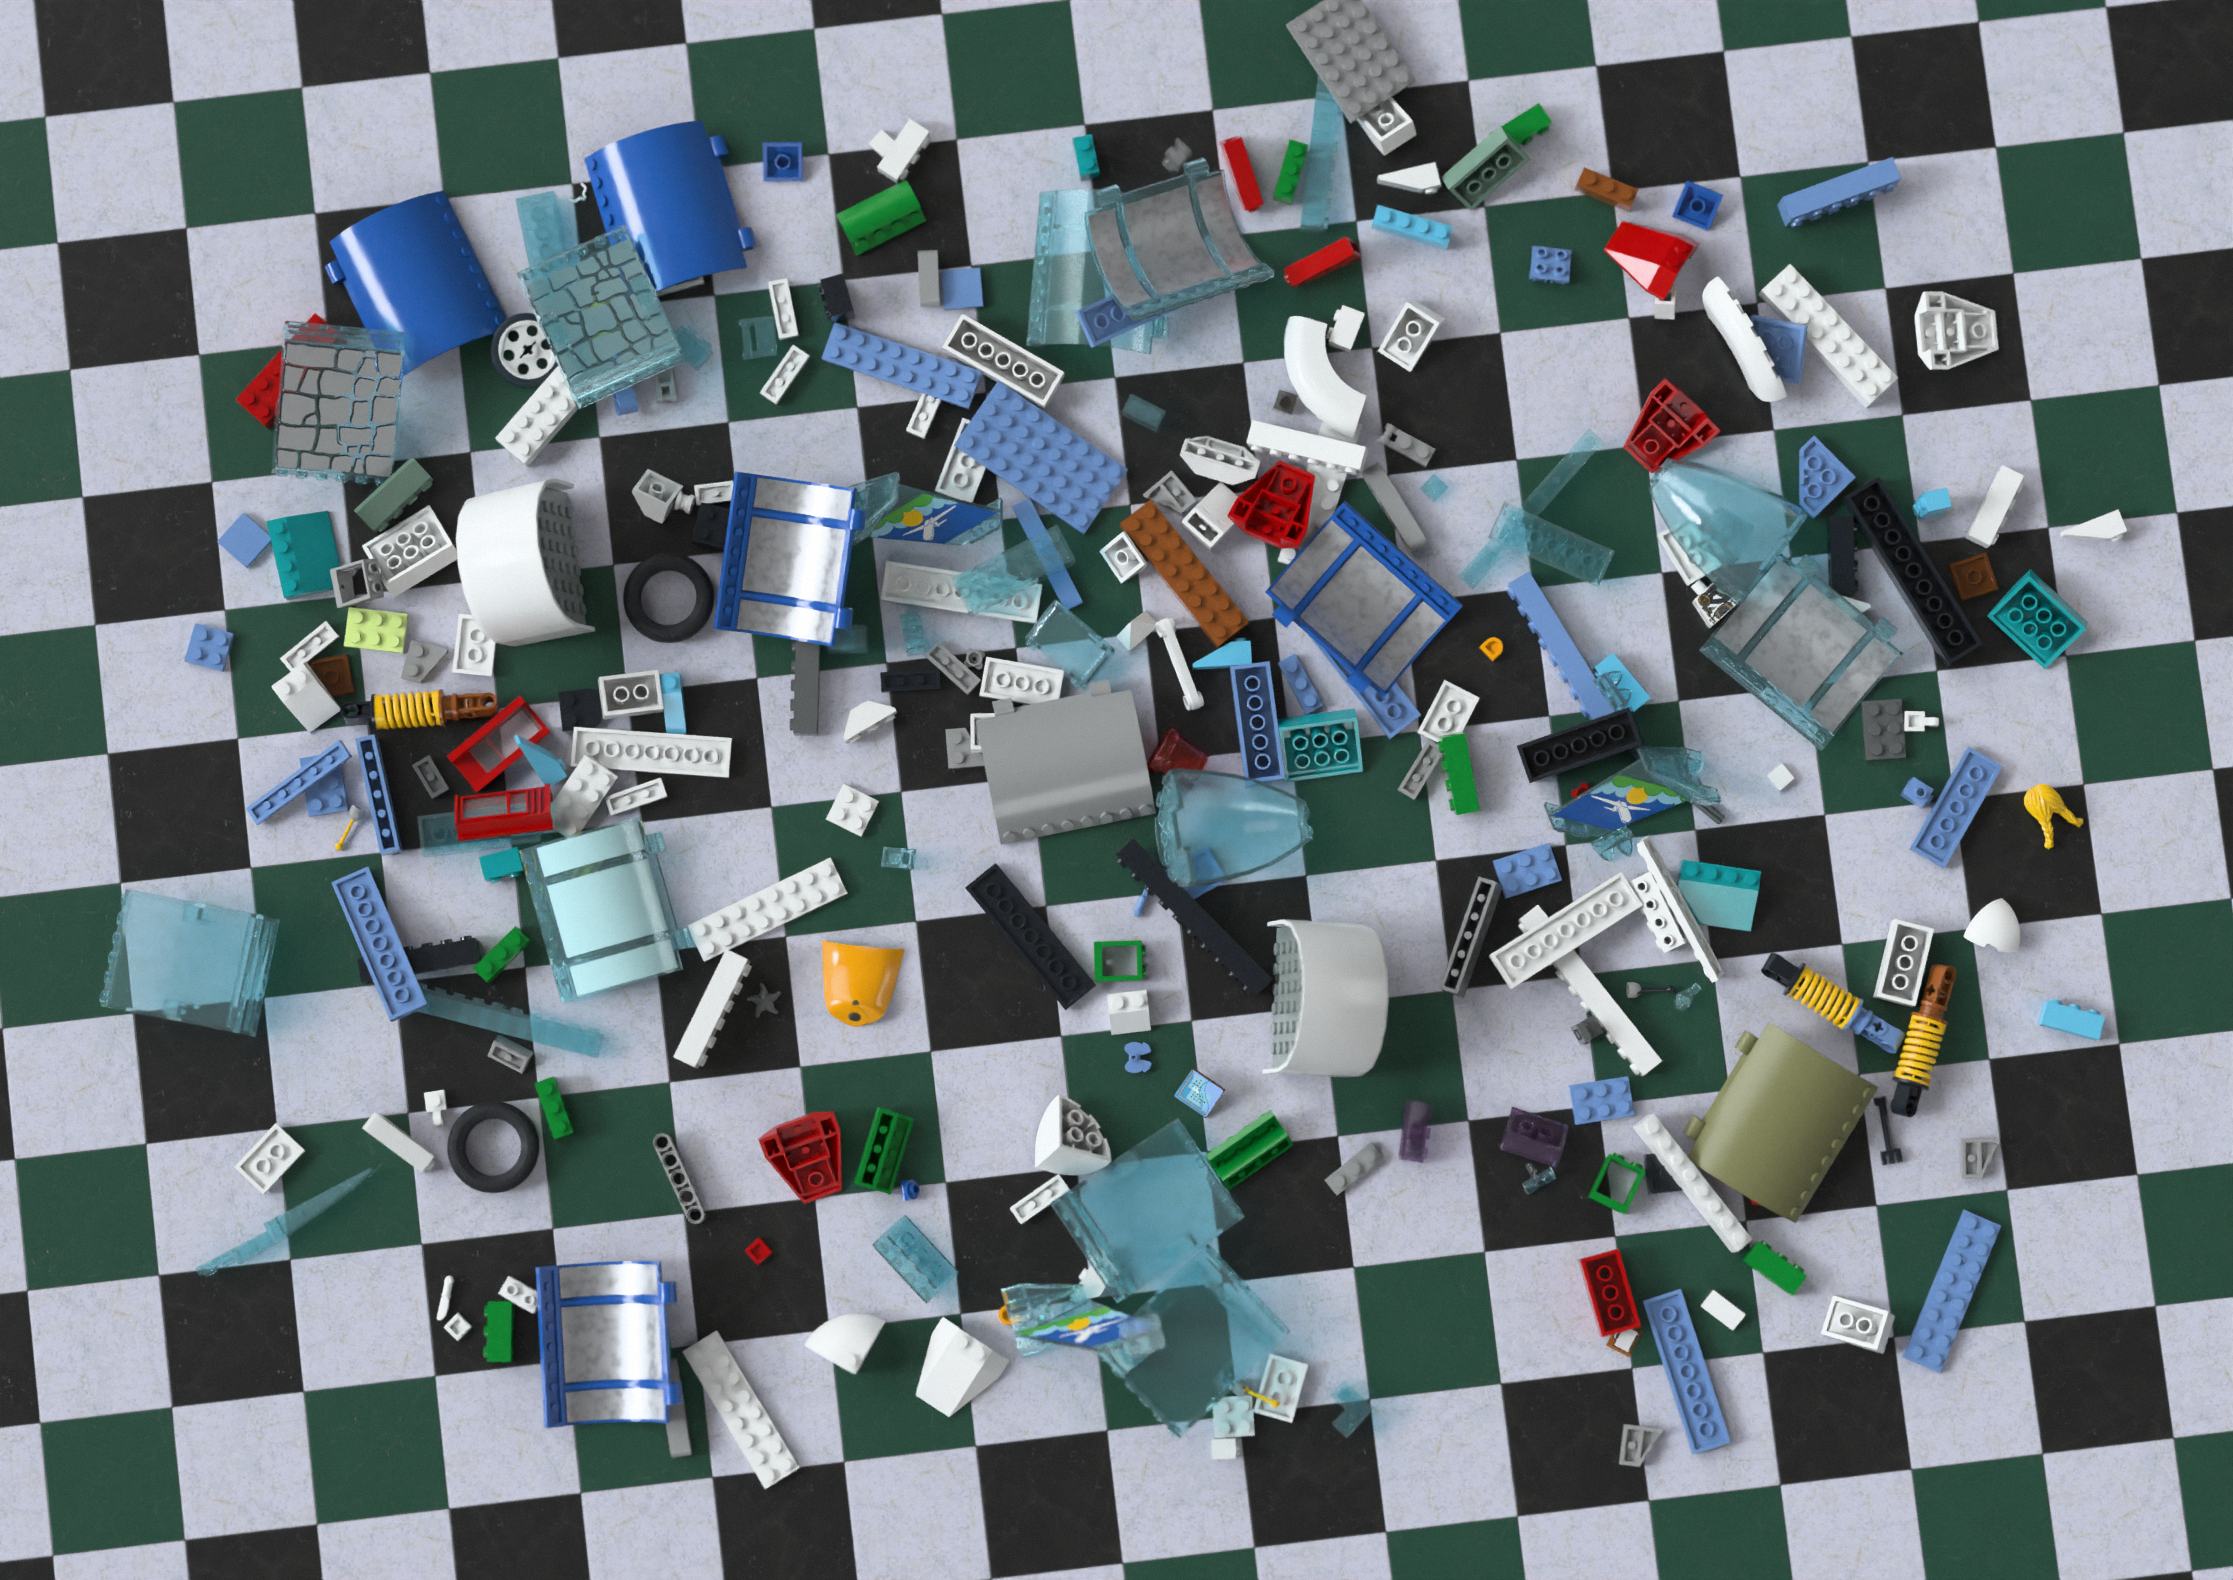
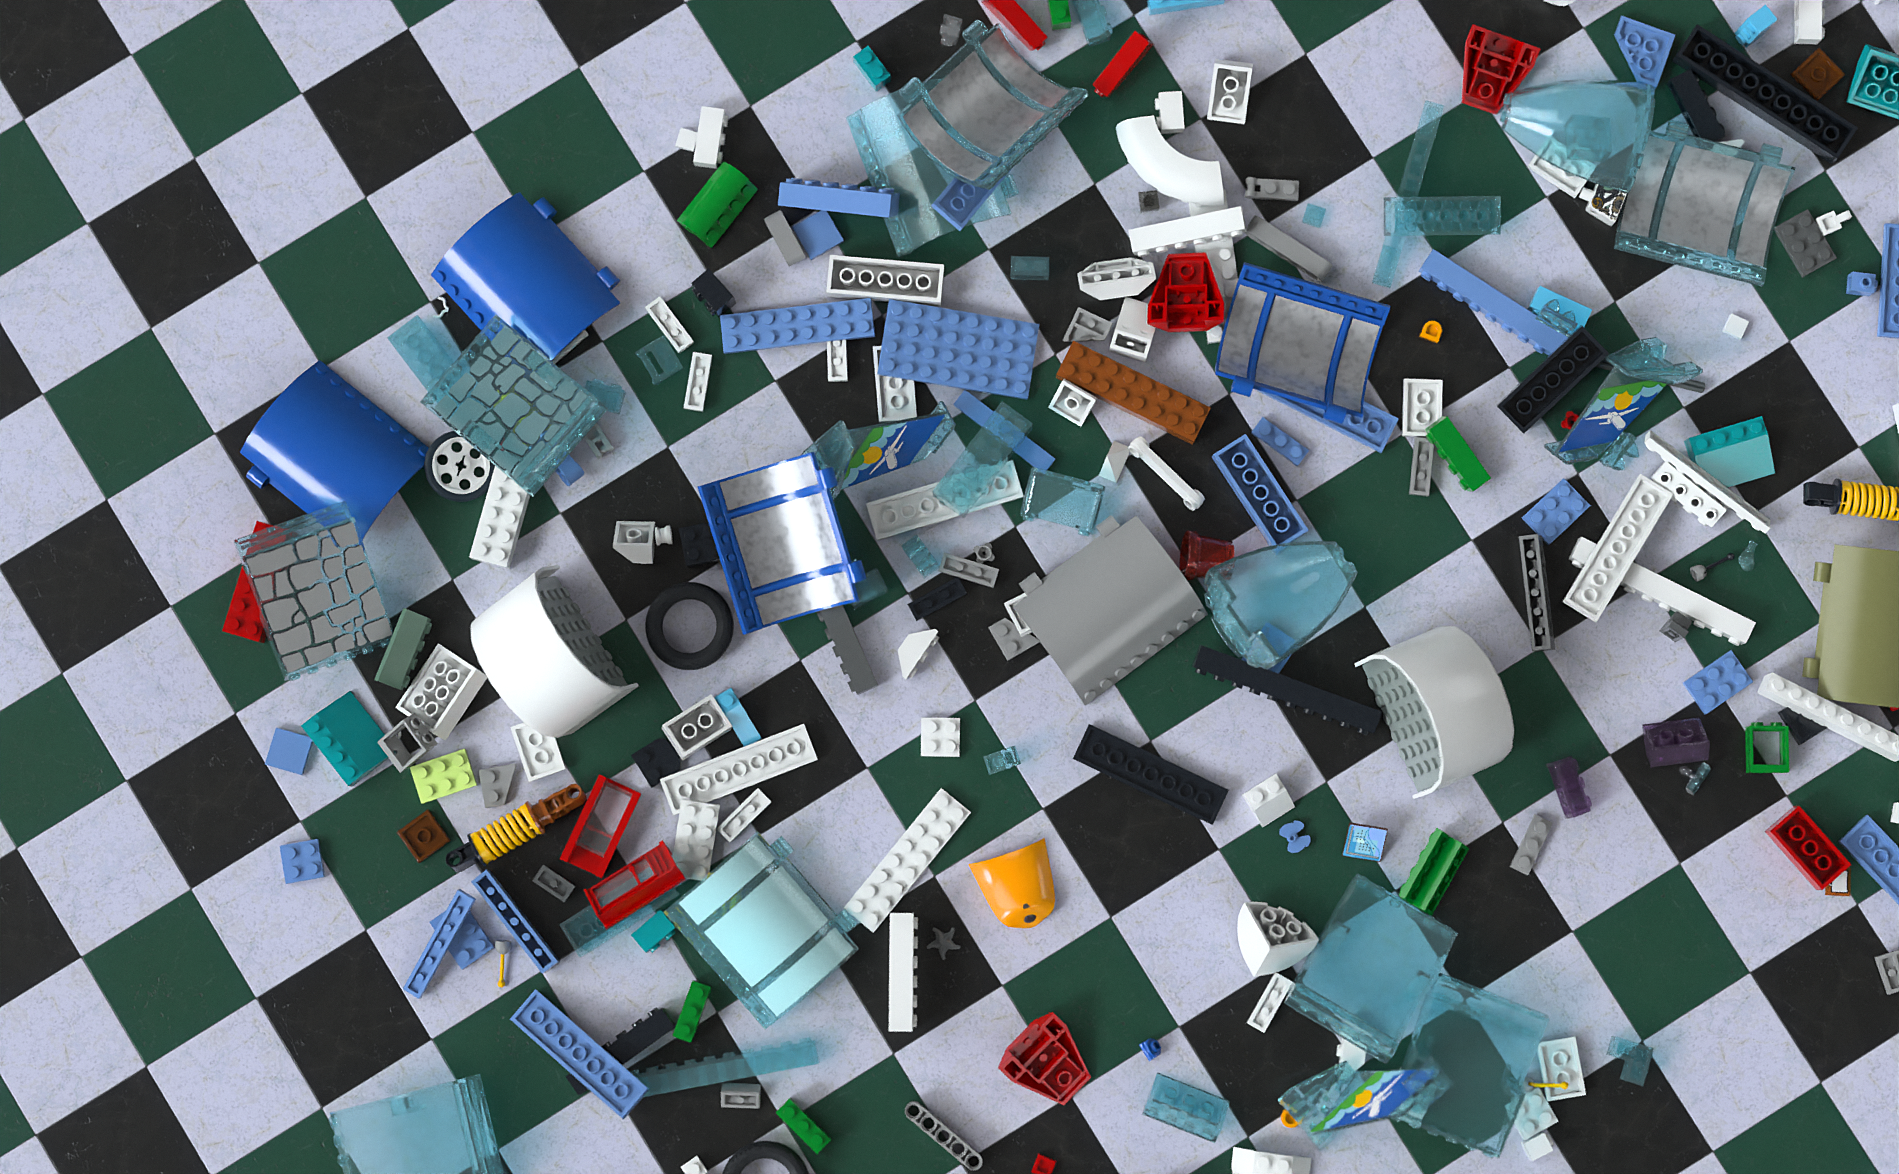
camera: 20 degrees left, 0 degrees up
(306, 697) = (410, 865): white slope -> none
(310, 646) = (391, 819): white plate -> none
(543, 761) = (647, 822): medium azure slope -> none
(713, 492) = (686, 514): white plate -> none
(782, 161) = (607, 195): blue slope -> none
(884, 1150) = (1112, 1025): green brick -> none
(995, 265) = (838, 198): none -> medium blue brick
(1020, 681) = (1034, 554): white plate -> none
(1141, 903) = (1233, 698): medium blue piece -> none
(1141, 969) = (1220, 768): green window -> none
(1229, 655) = (1208, 444): medium azure slope -> none
(1320, 745) = (1324, 485): teal slope -> none

